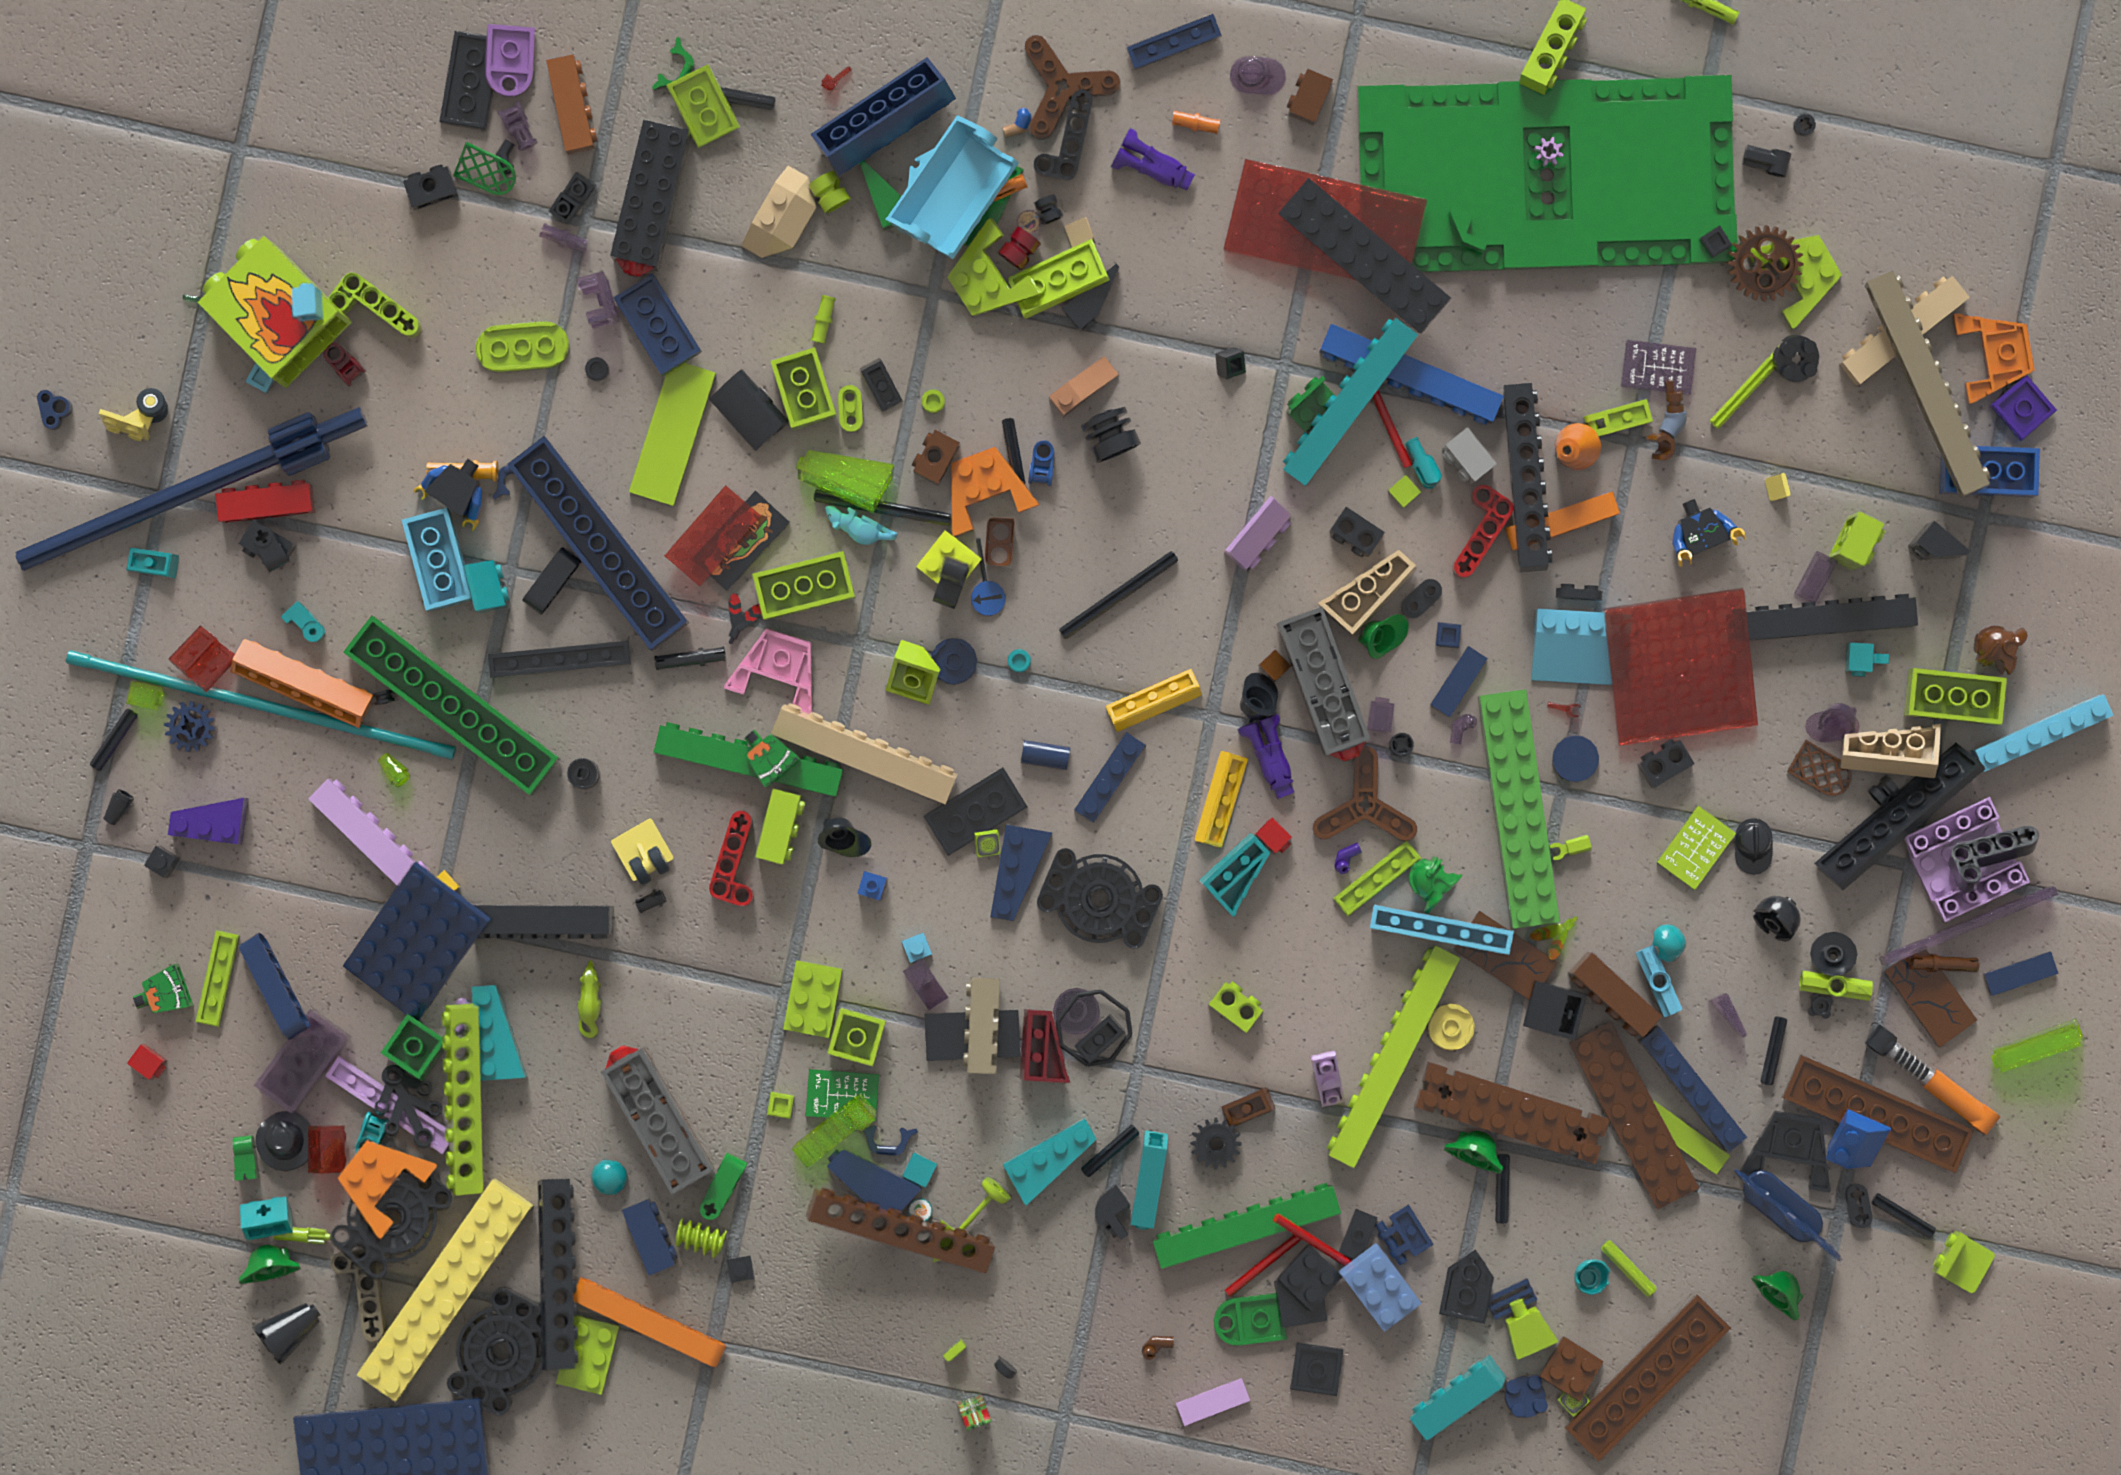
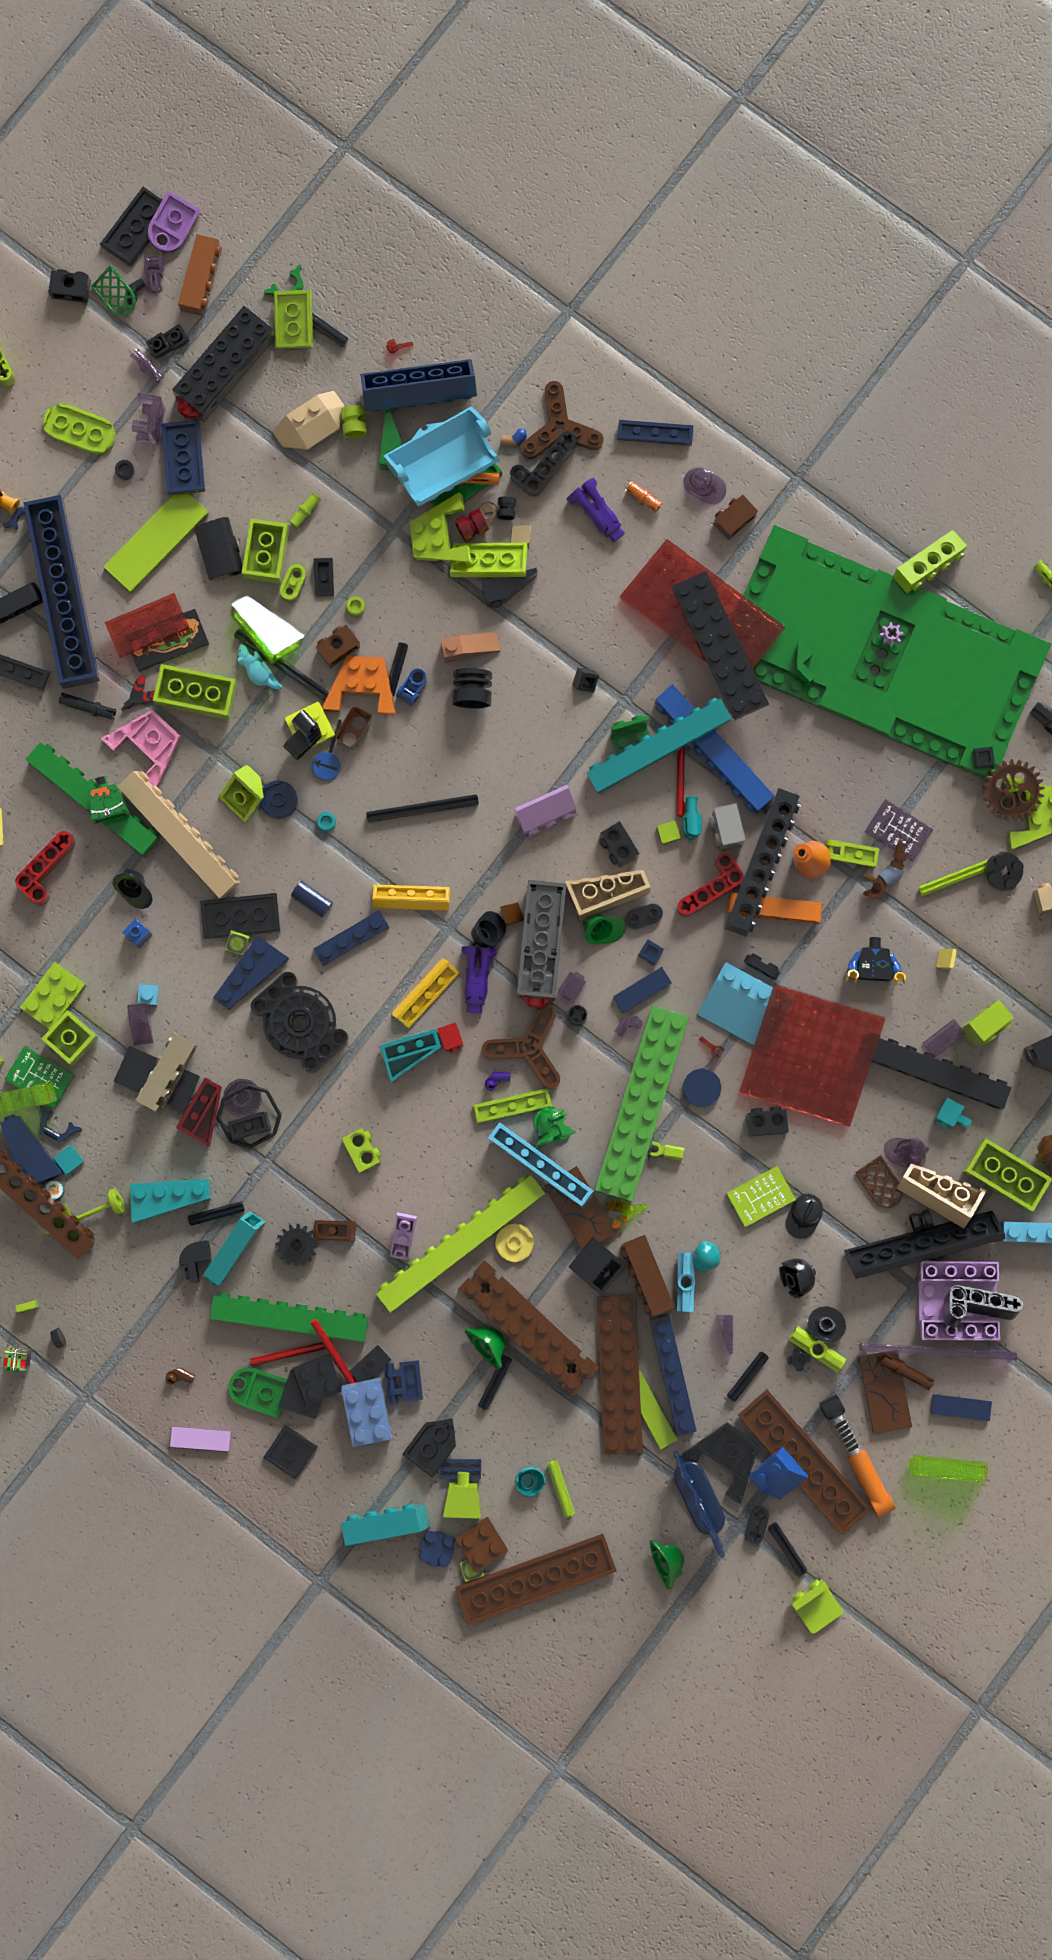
camera: 25 degrees right, 5 degrees down
(780, 827) = (90, 857): lime brick -> none

